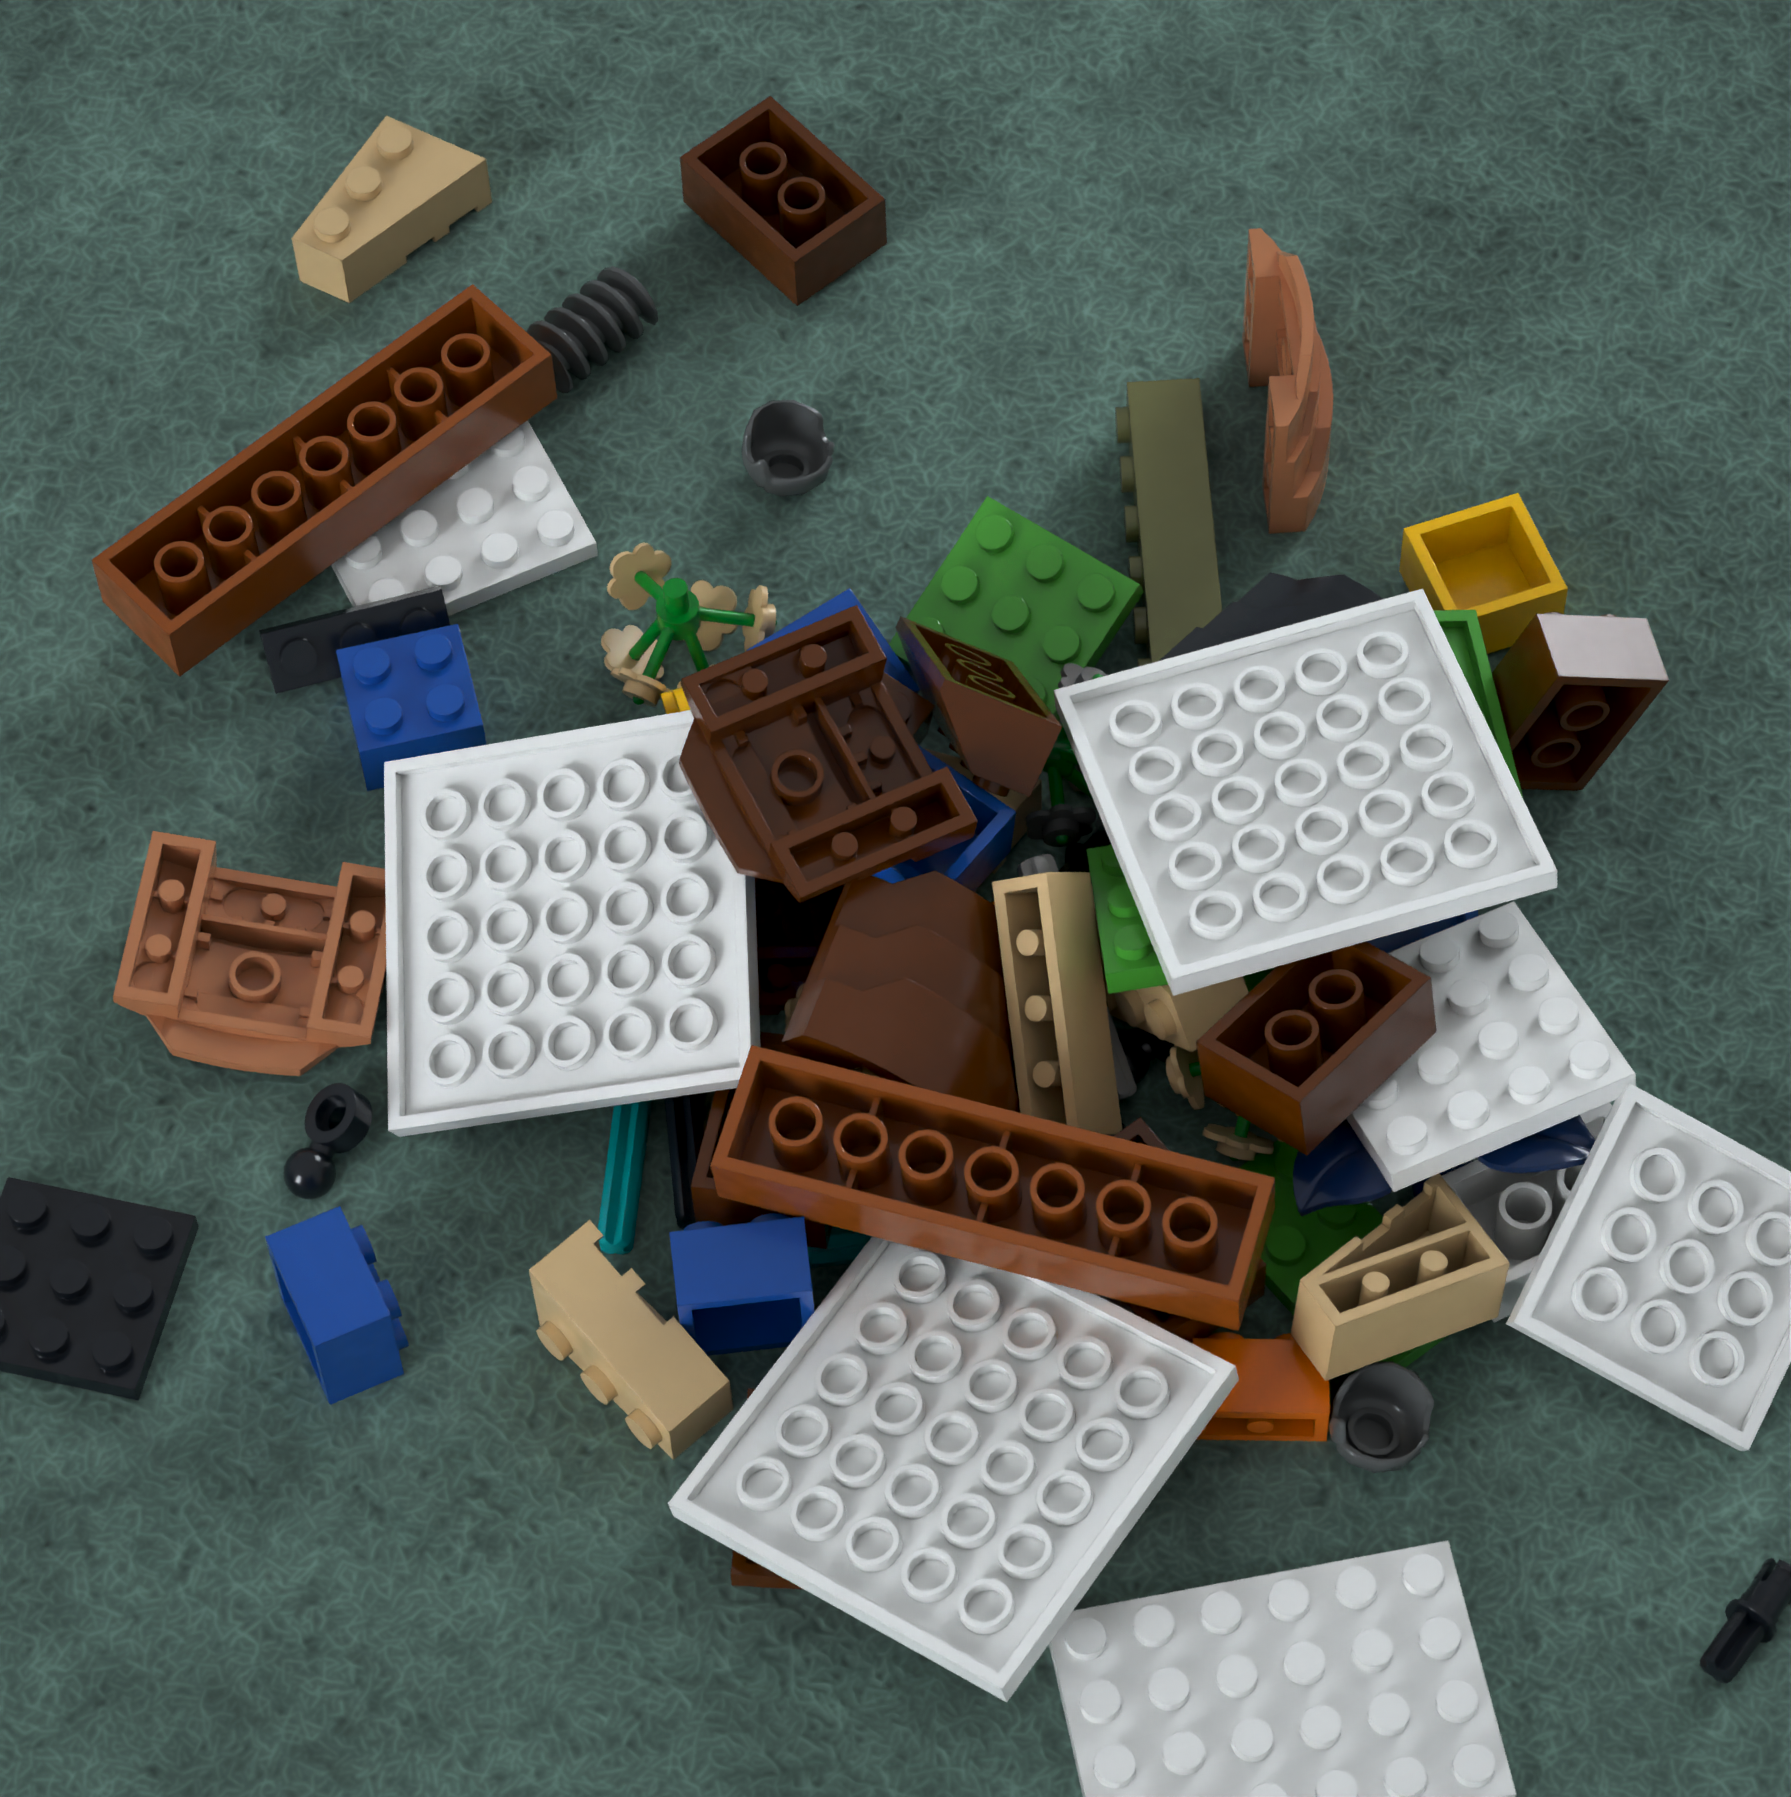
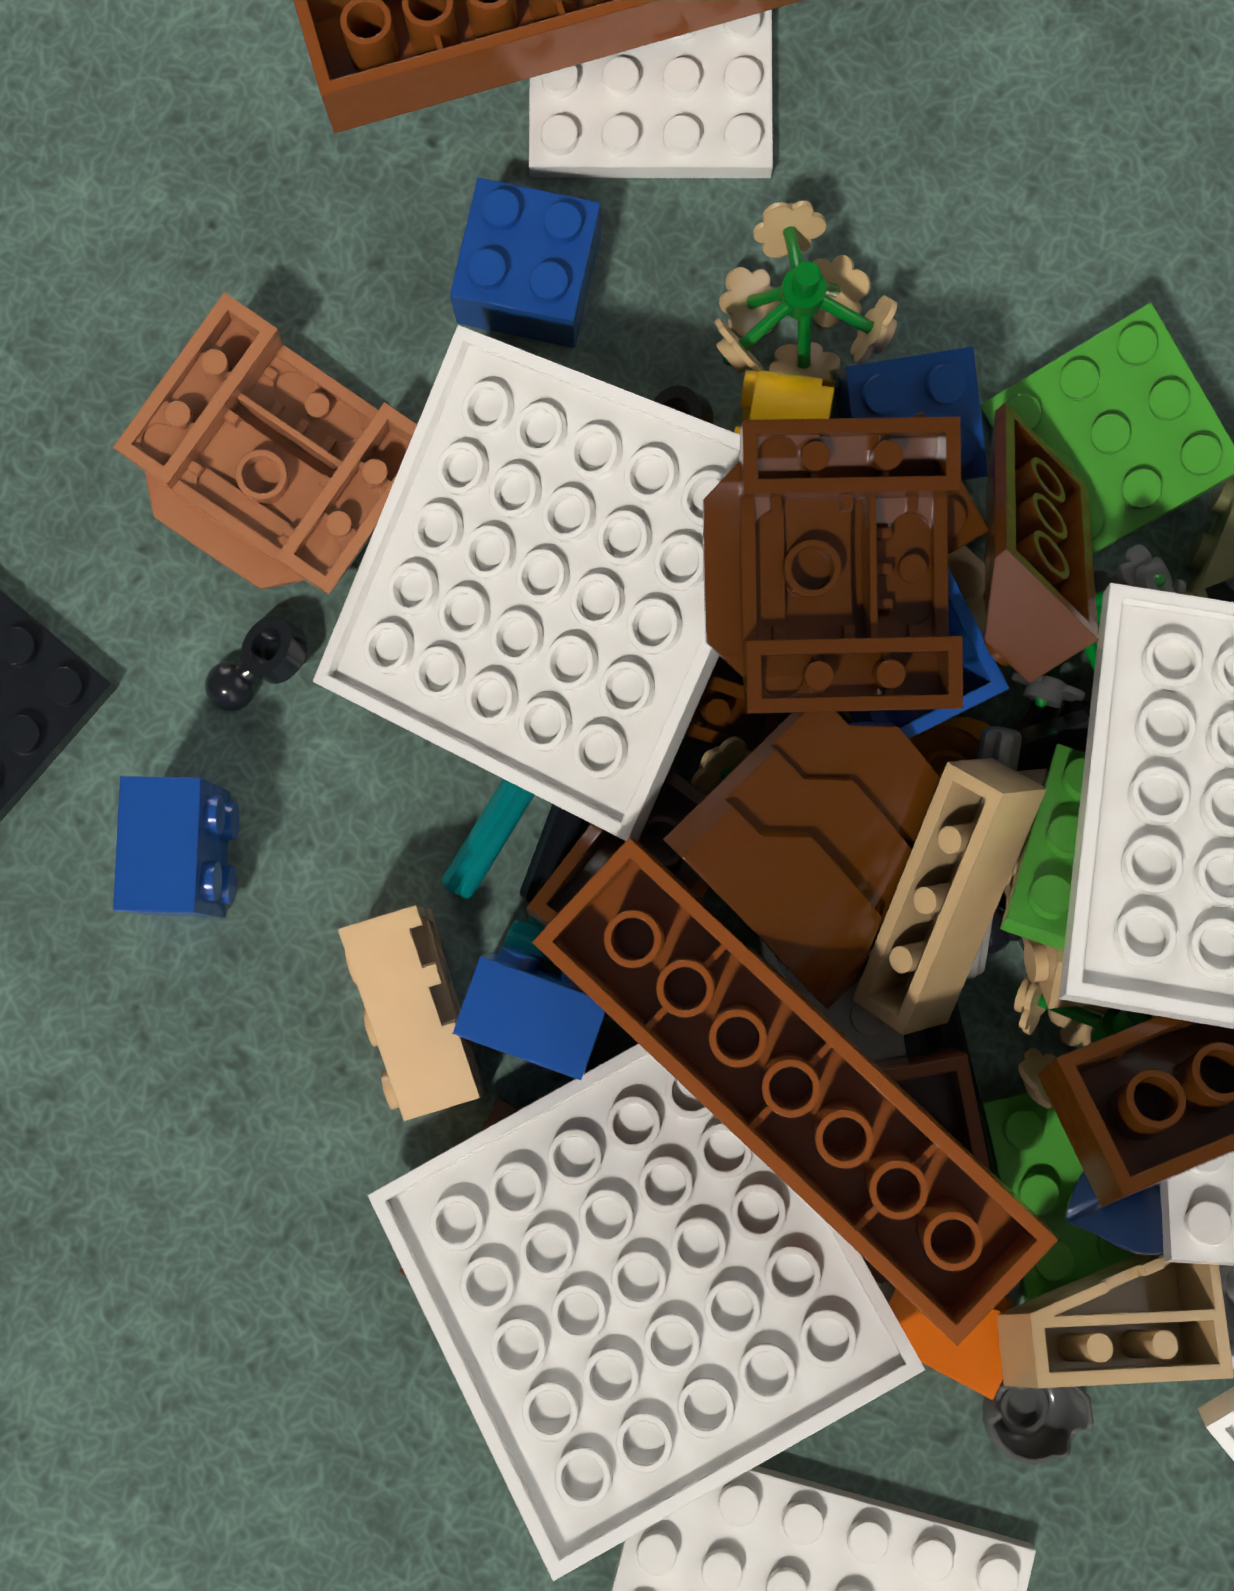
camera: 25 degrees right, 25 degrees up
(306, 649) = (460, 153): black plate -> none
(786, 448) = (991, 152): dark grey hair -> none

